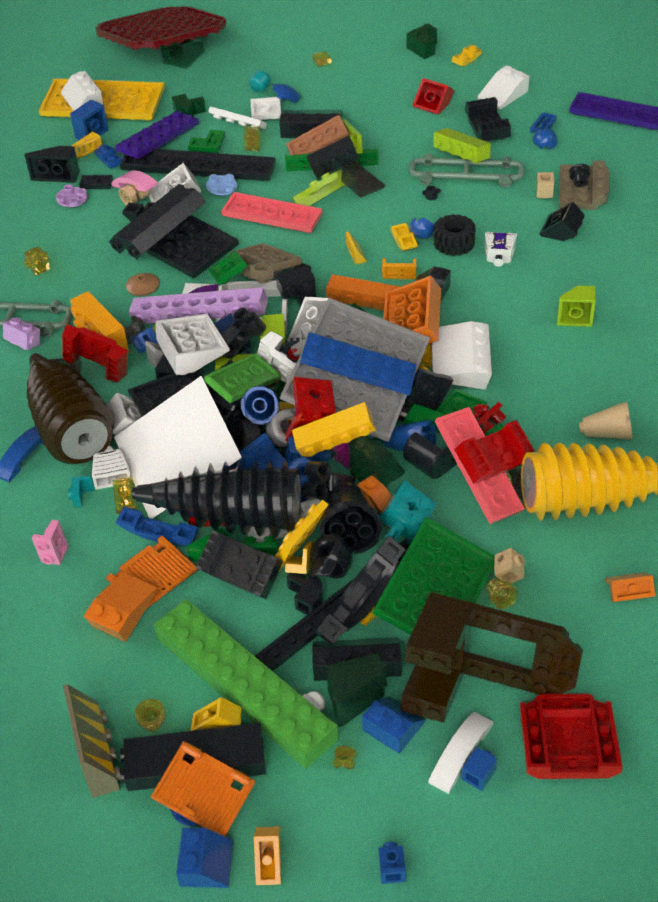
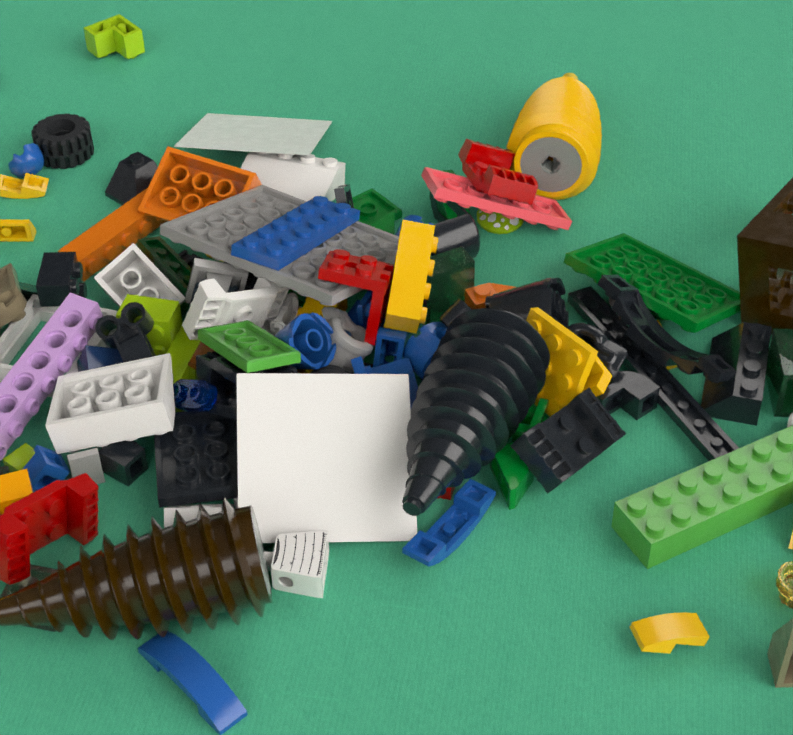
camera: 75 degrees left, 5 degrees down
(52, 545) = (443, 647): bright pink bracket -> none
(78, 486) = (326, 610): teal bracket -> none
(98, 654) = (664, 631): none -> yellow slope
(120, 606) = (594, 586): orange slope -> none
(123, 494) = (363, 556): clear yellow plate -> none
(158, 568) = (534, 546): orange window -> none
(207, 369) = (194, 395): none -> clear blue plate
(399, 270) = (85, 203): light orange hinge -> none
(406, 511) = (525, 267): teal brick -> none
(485, 416) = (403, 192): red hips -> none
(500, 247) = (113, 117): white torso -> none
(501, 593) = (677, 241): clear yellow piece -> none
(508, 320) = (255, 134): none -> white sticker
(509, 565) = (651, 224): tan brick -> none
(544, 185) = (35, 56): tan brick -> none
(563, 223) = (109, 64): black slope -> none
(577, 307) = (272, 81): lime slope -> none
(580, 174) = (49, 25): black piece -> none
(588, 196) = (50, 37): dark tan plate -> none
(596, 211) = (114, 35): none -> lime brick
(608, 423) = (465, 106): tan cone -> none
(631, 586) = (690, 155): orange panel -> none

